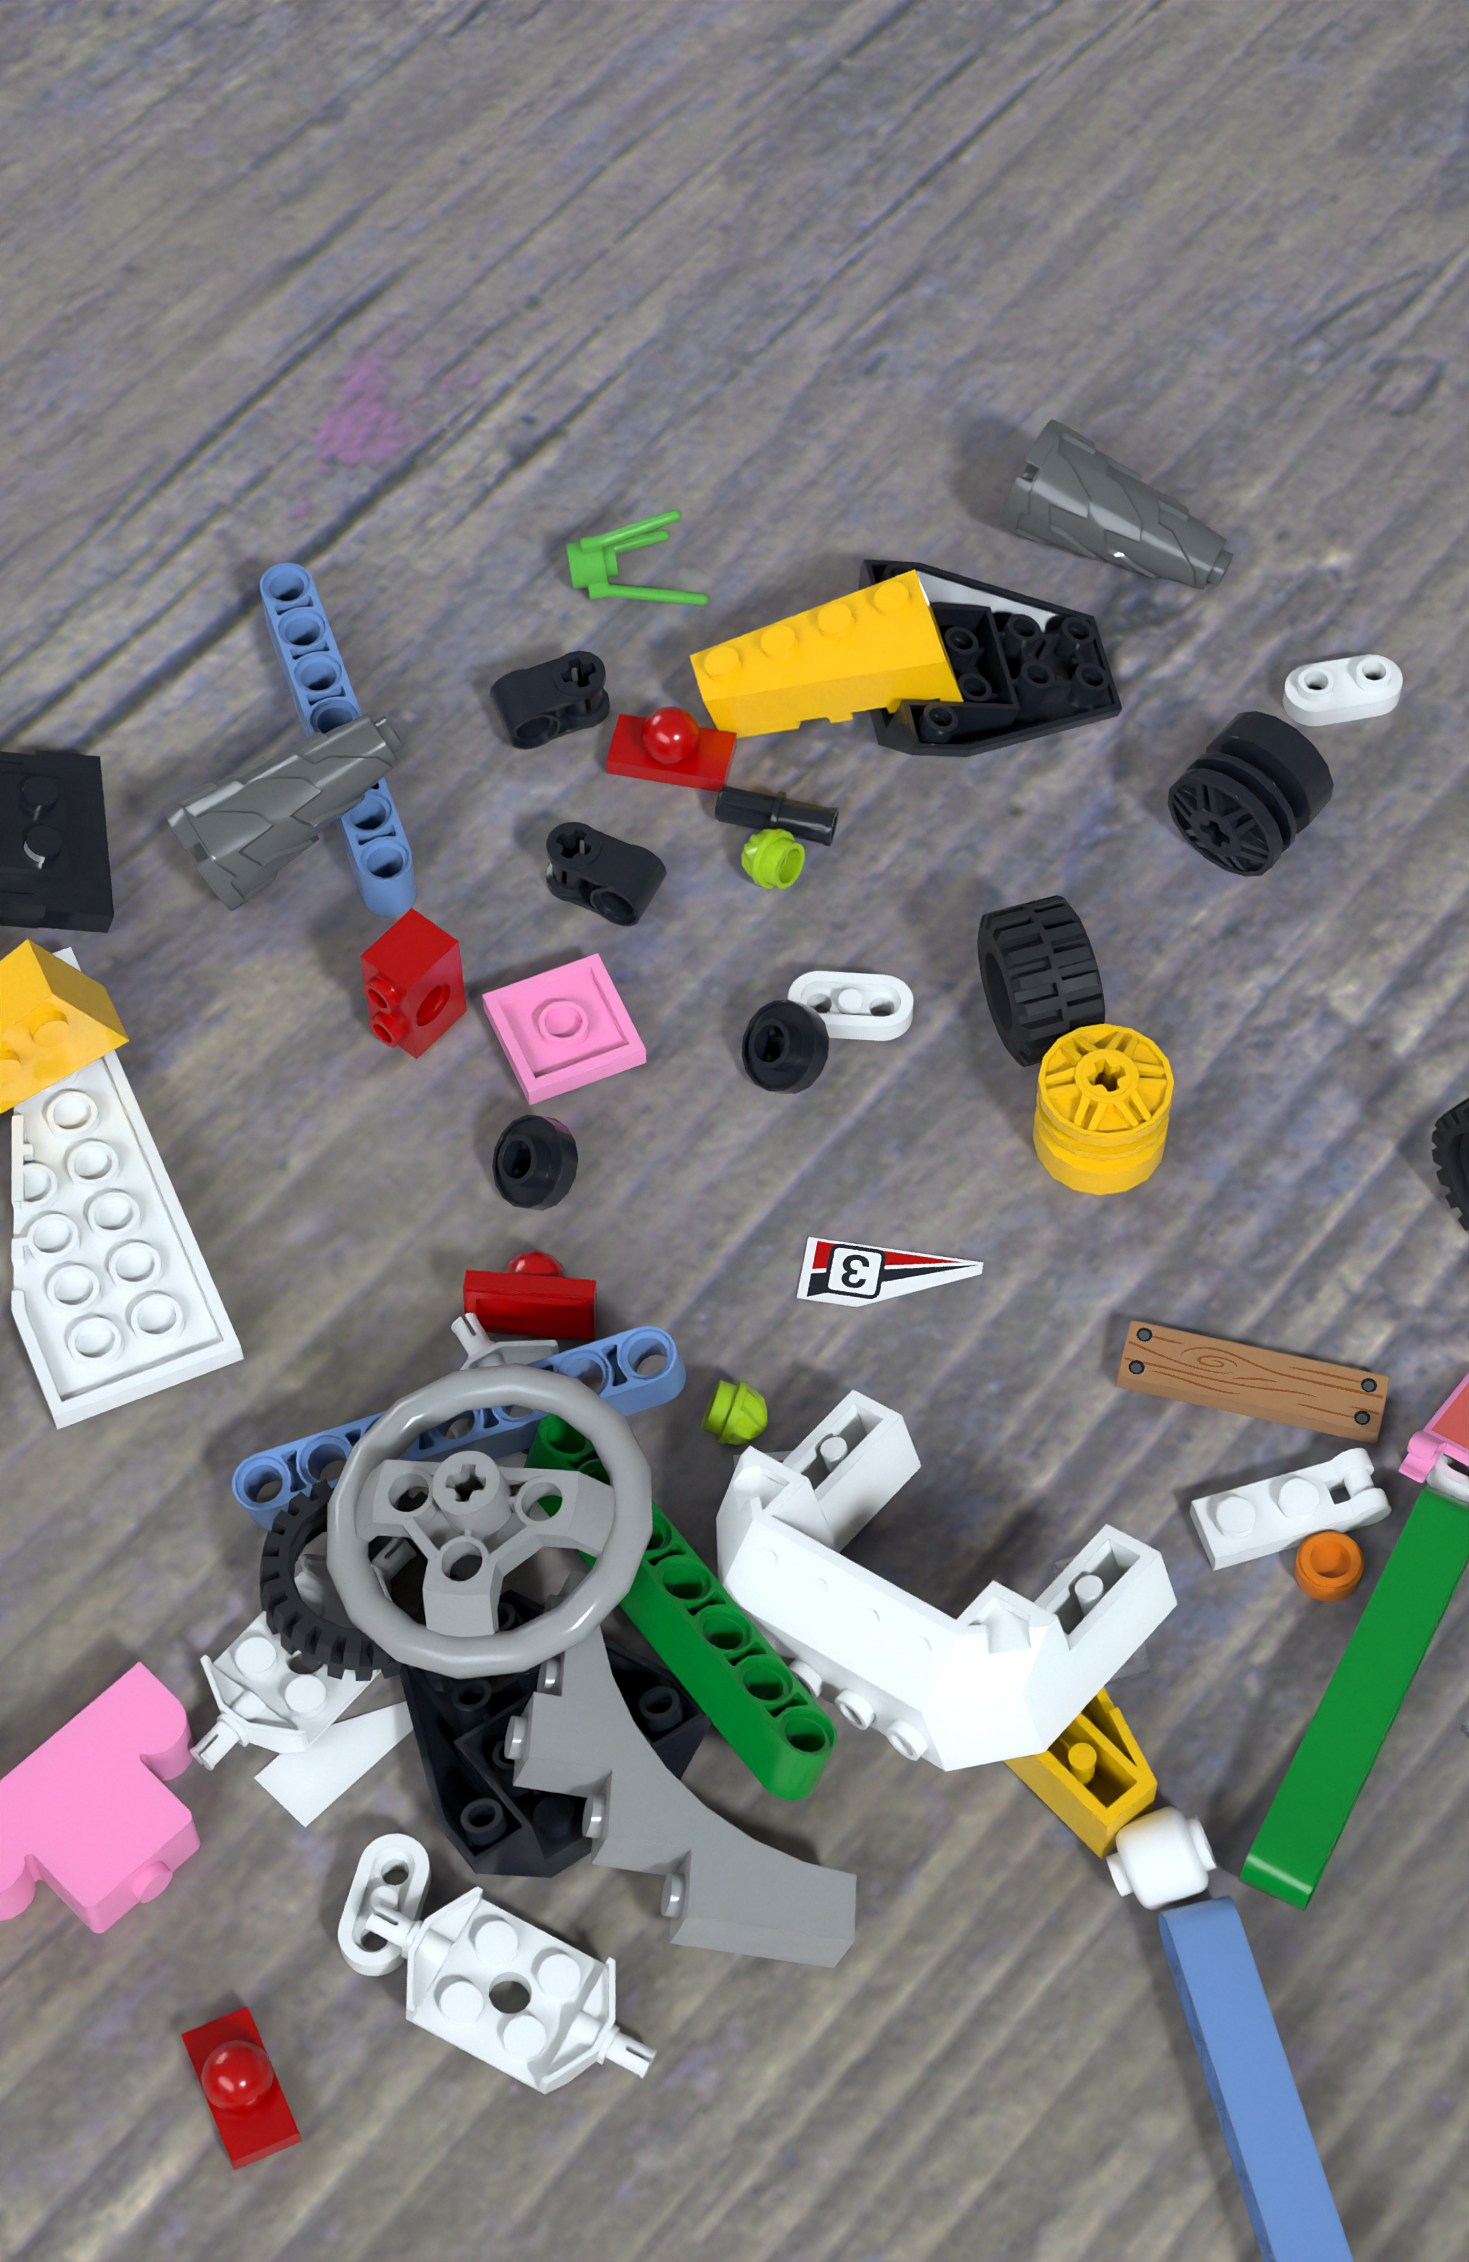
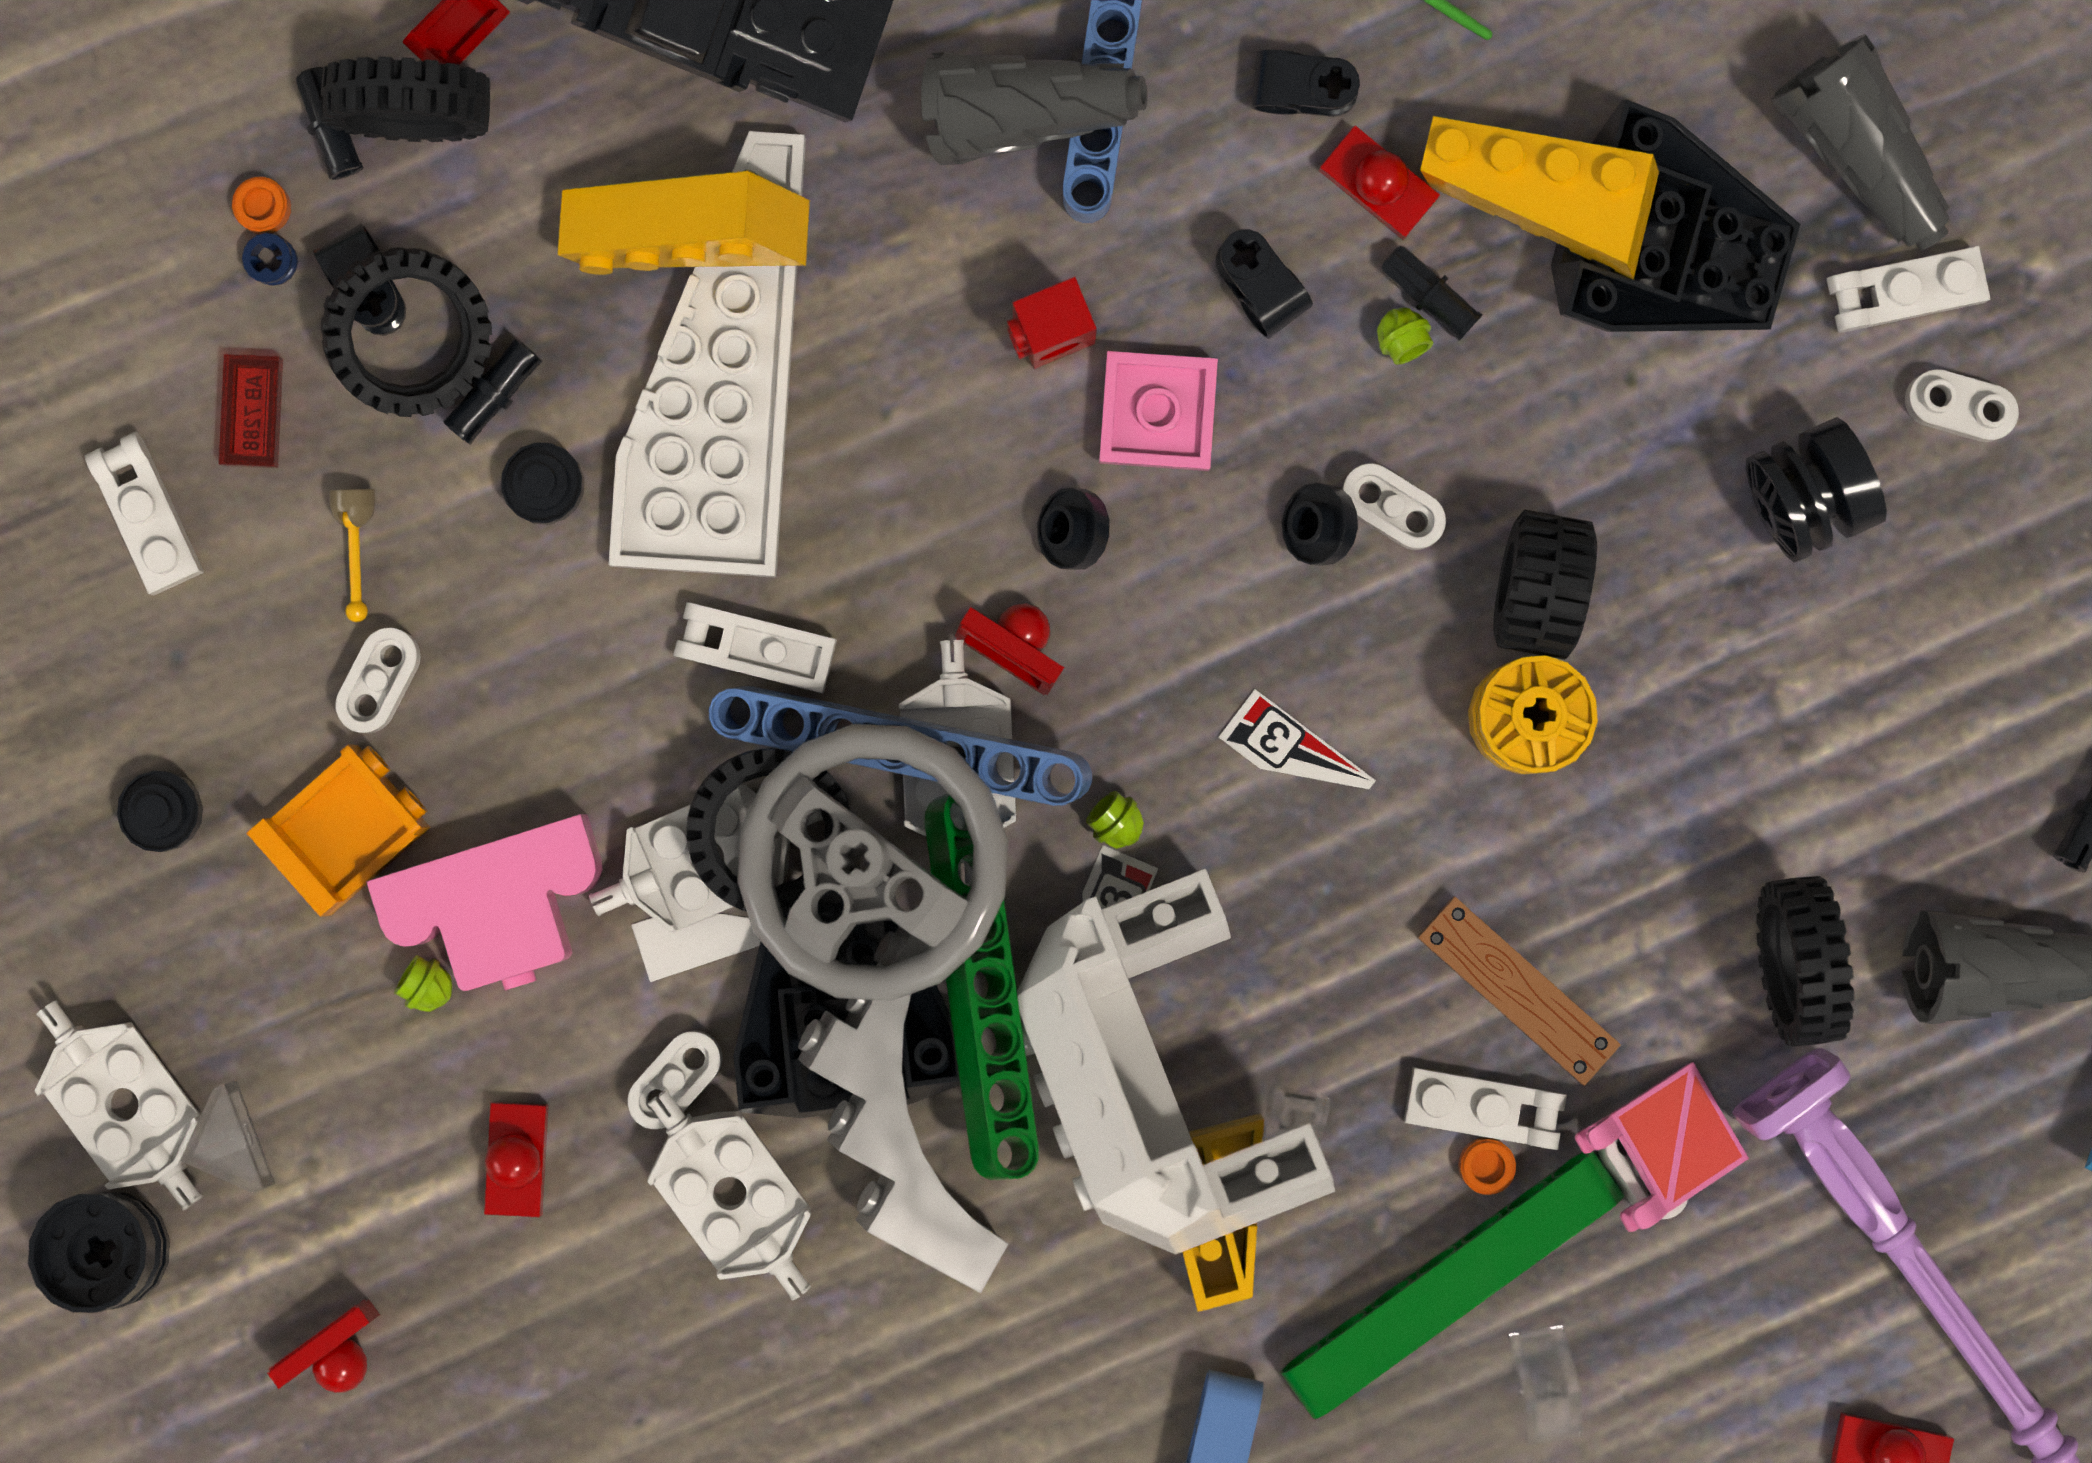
camera: 25 degrees right, 30 degrees up
(44, 1942) = (424, 985): none -> lime plate
(246, 1427) = (757, 648): none -> white plate
(1162, 1858) = (1234, 1334): white head -> none
(1229, 622) = (1910, 289): none -> white plate

